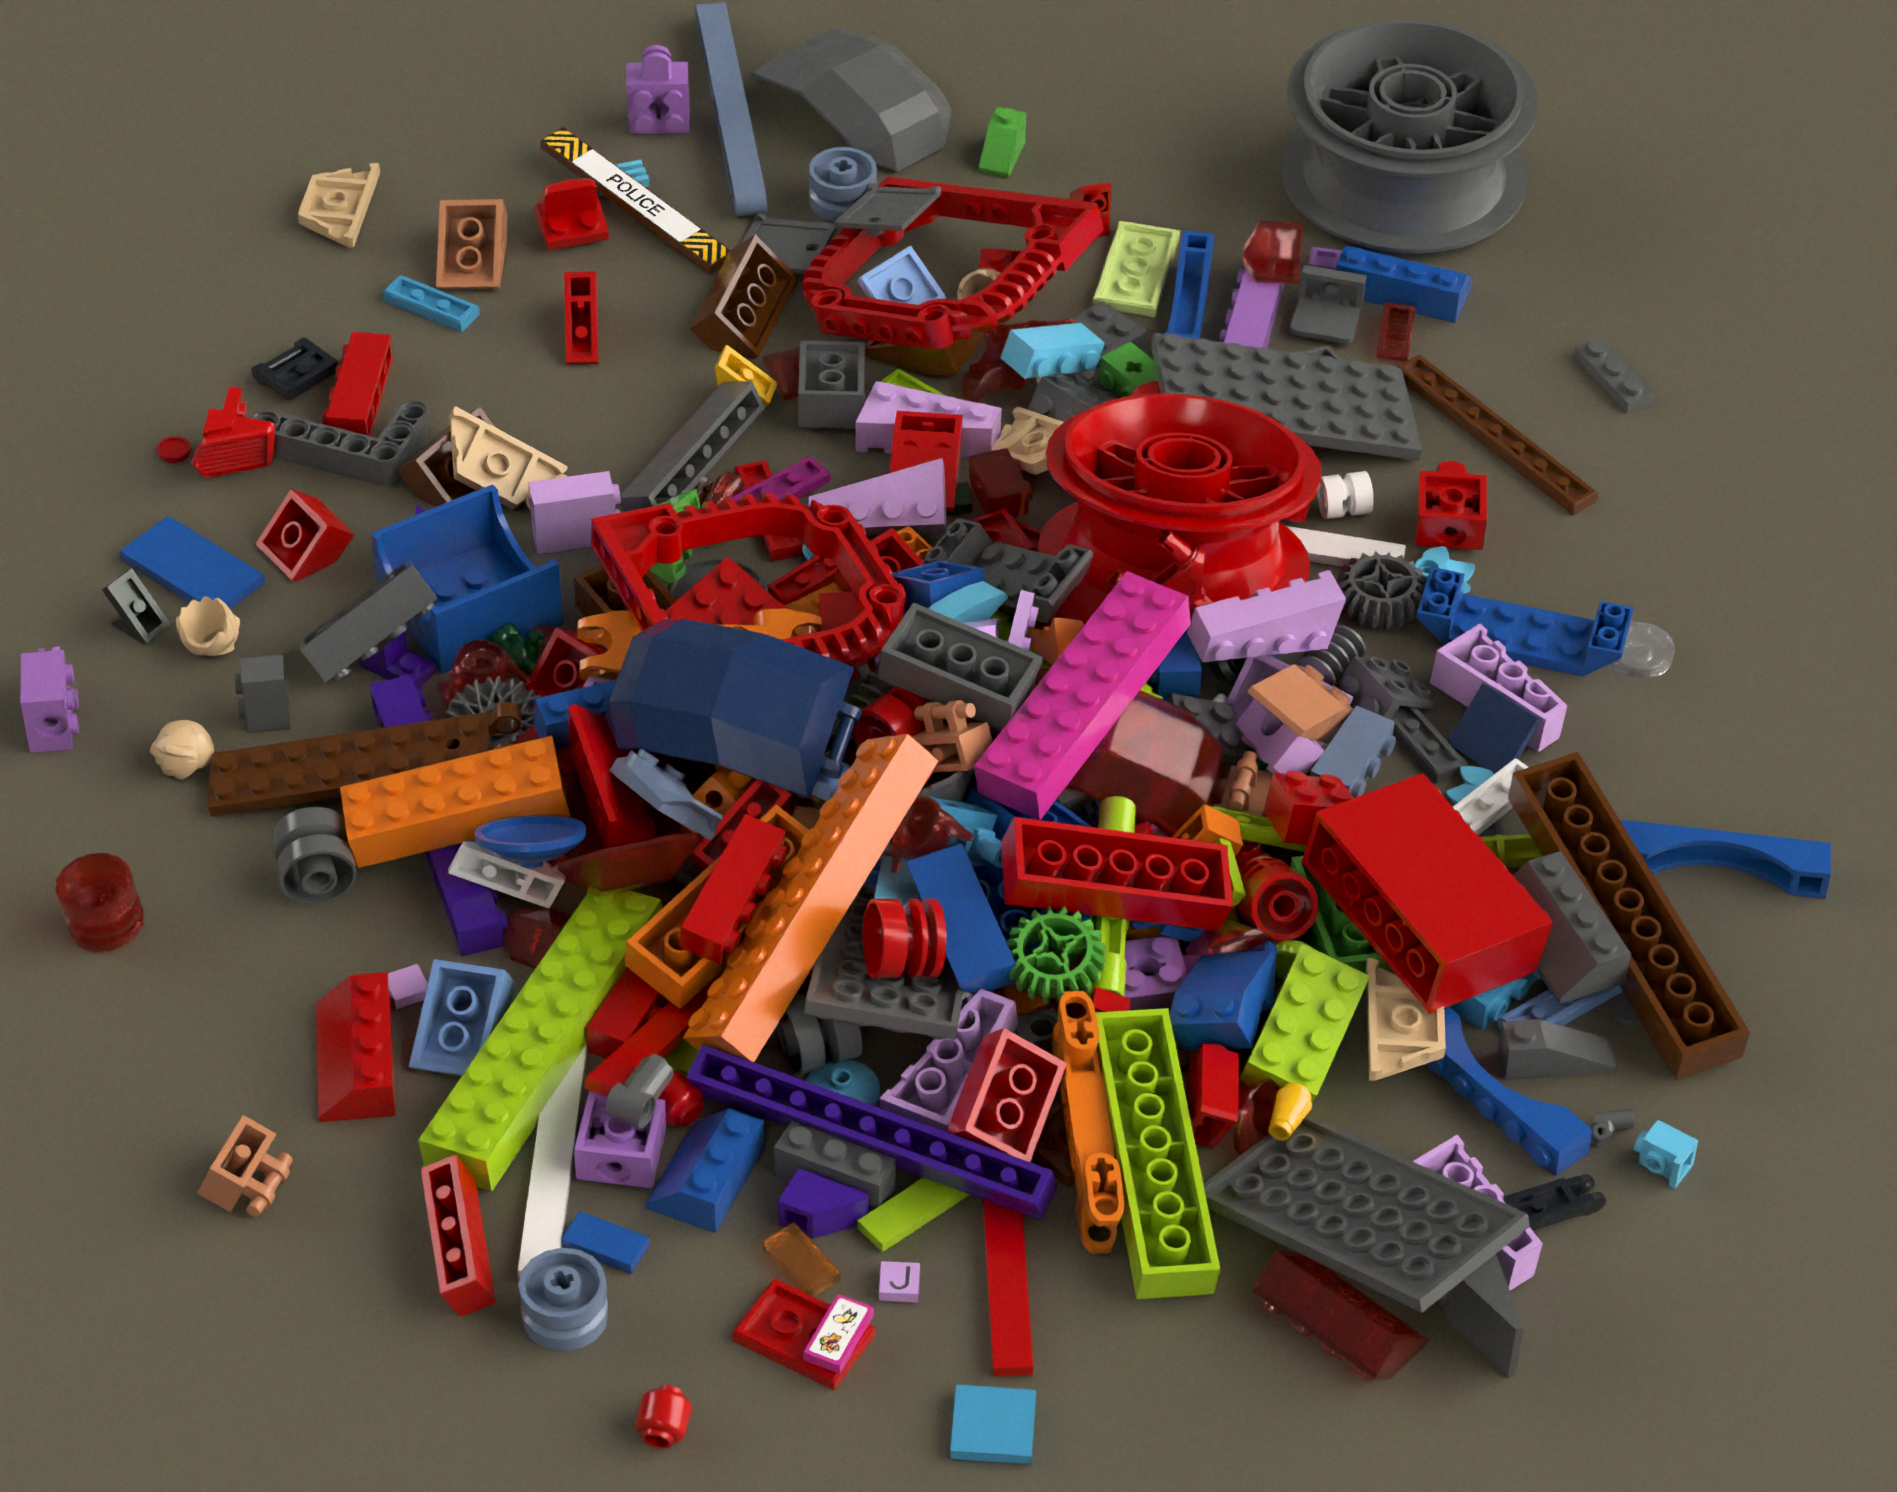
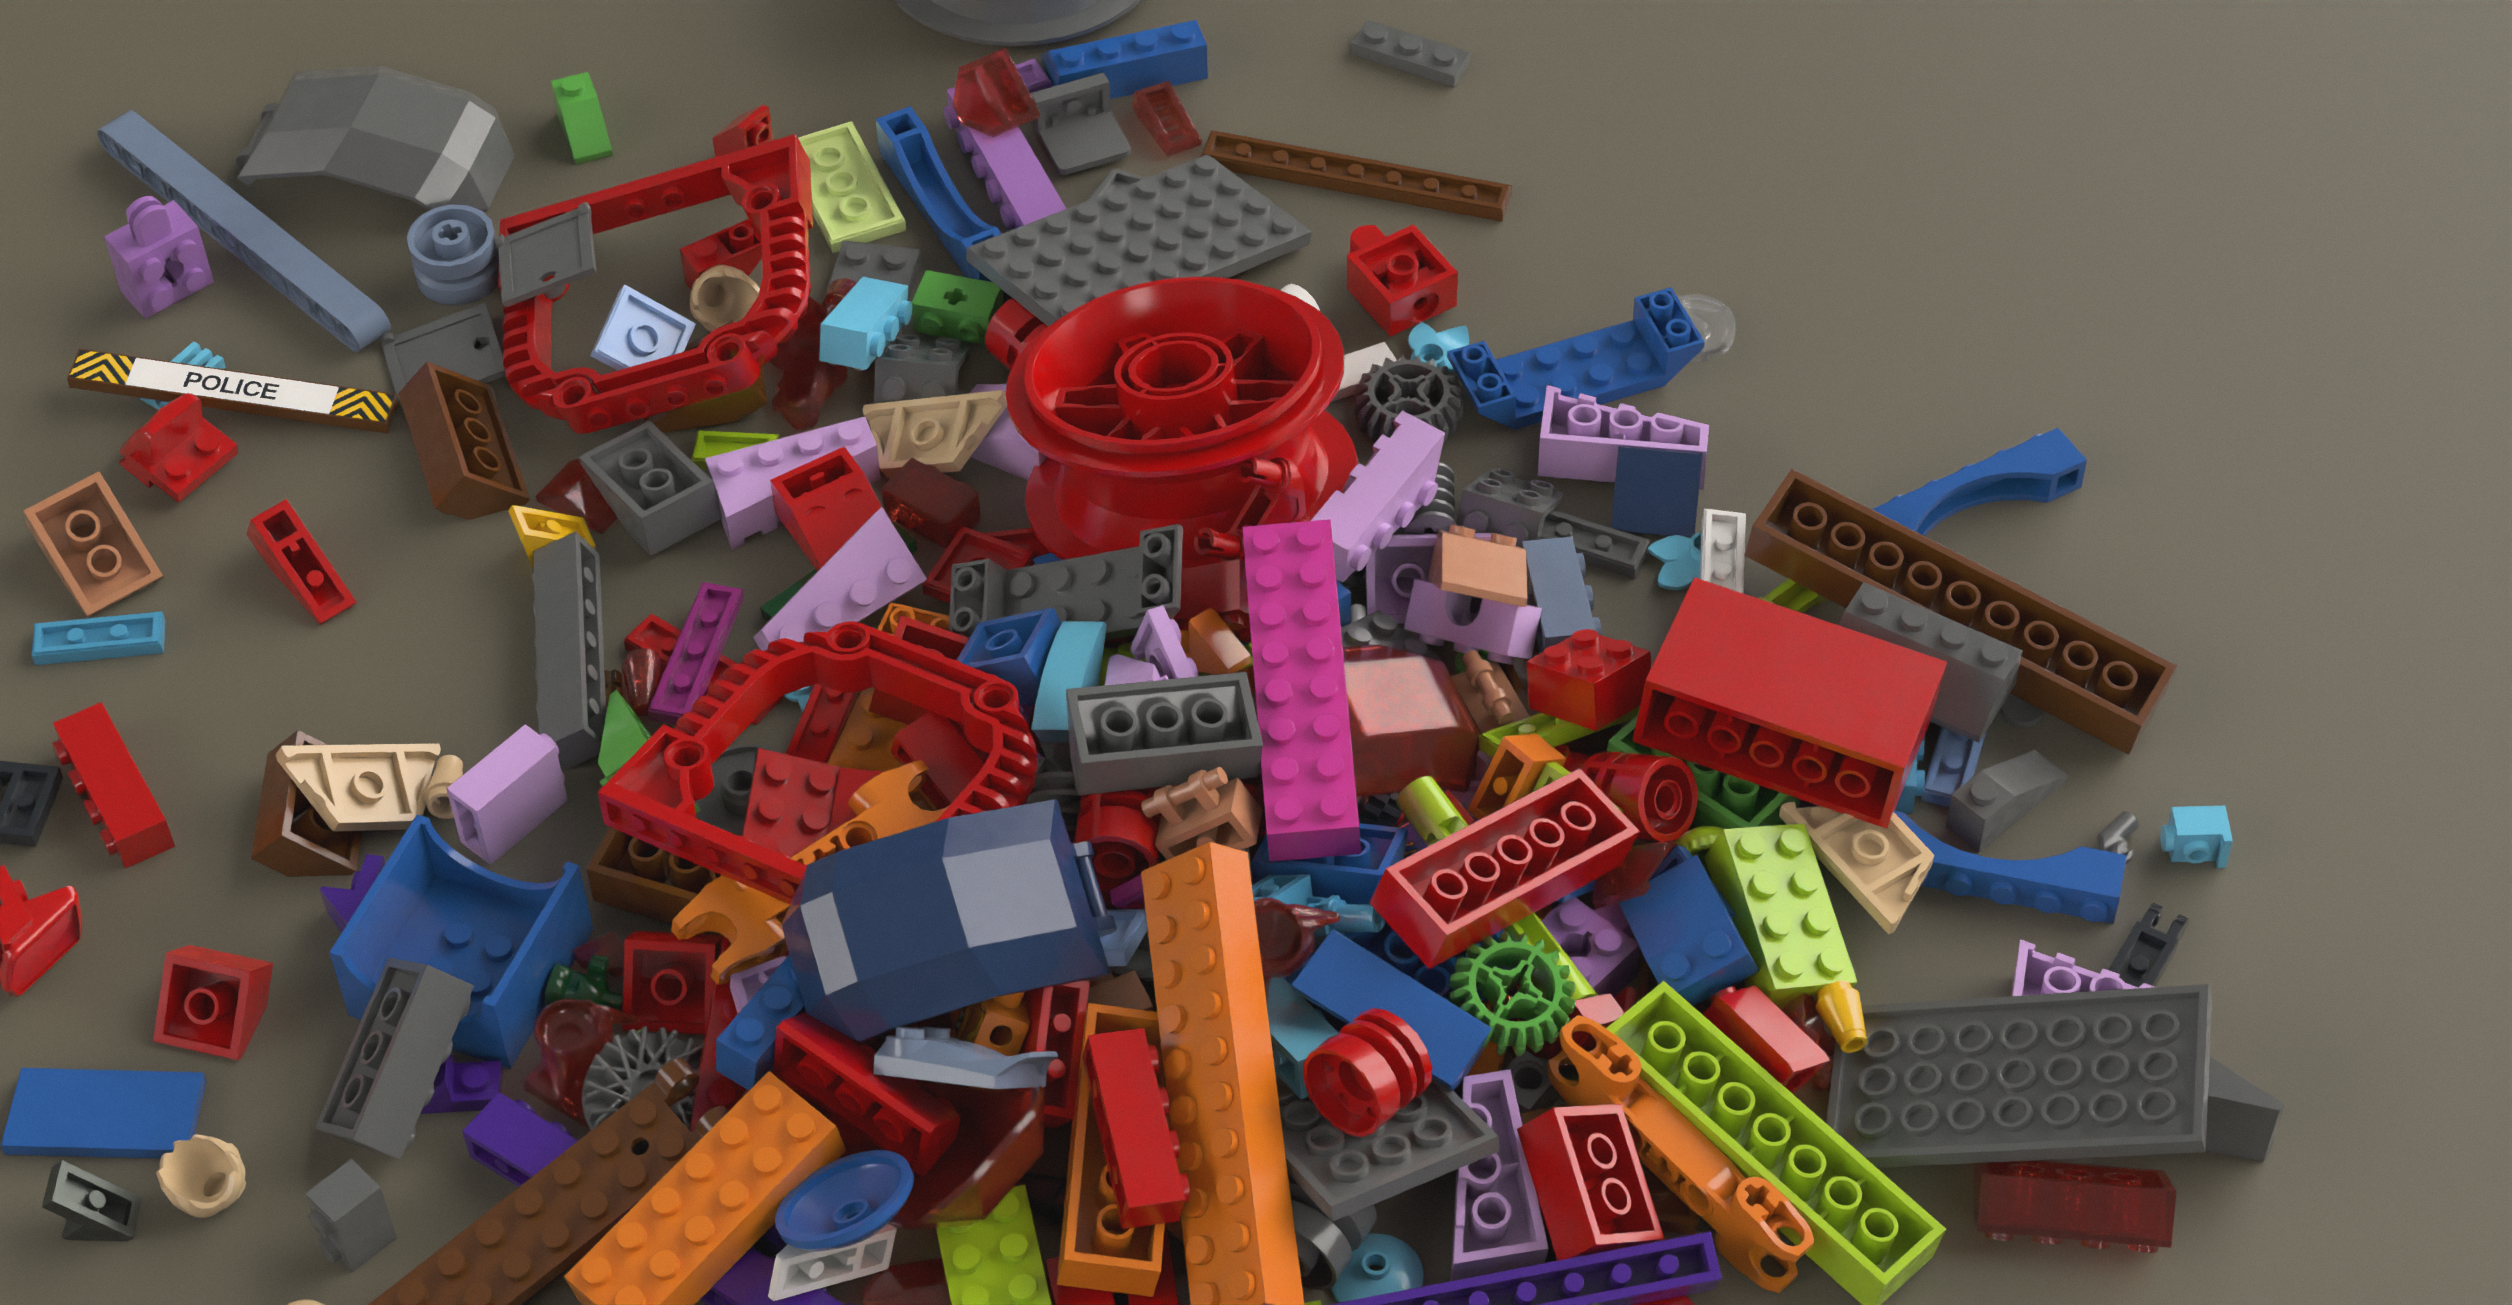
camera: 35 degrees left, 5 degrees up
(351, 452) = (168, 869): dark grey beam -> none

